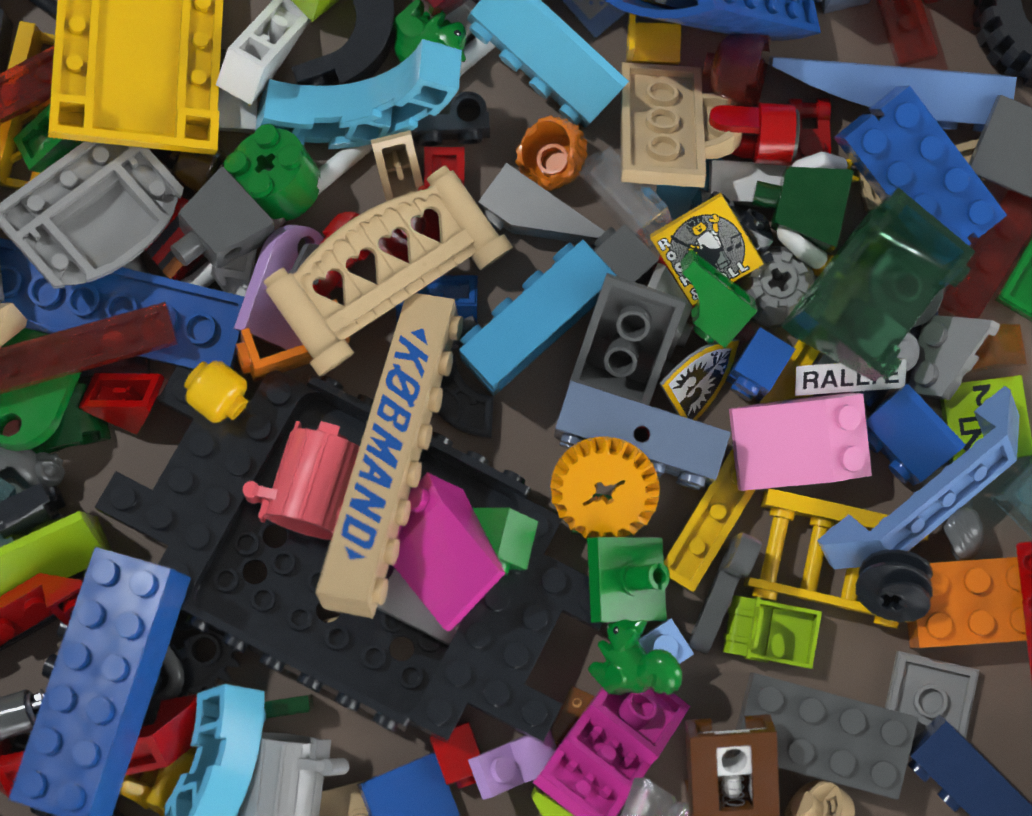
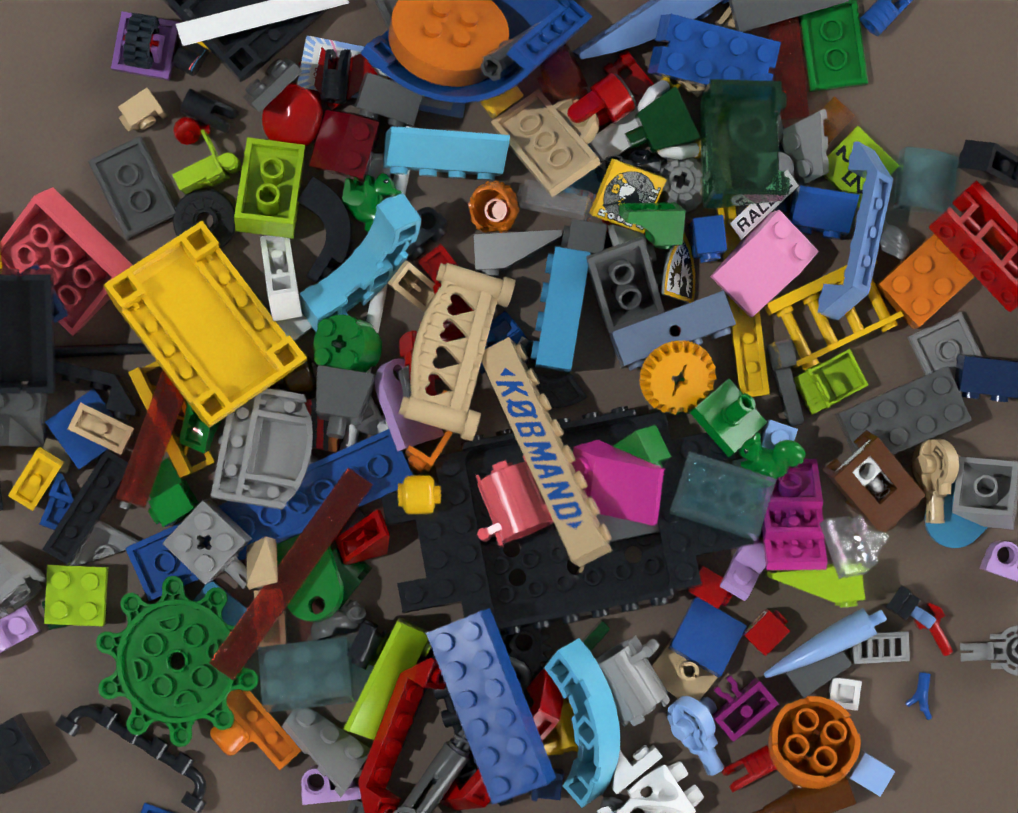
camera: 40 degrees left, 5 degrees up
(548, 658) = (723, 496): none -> clear light blue brick
(895, 585) = (880, 303): black piece -> none

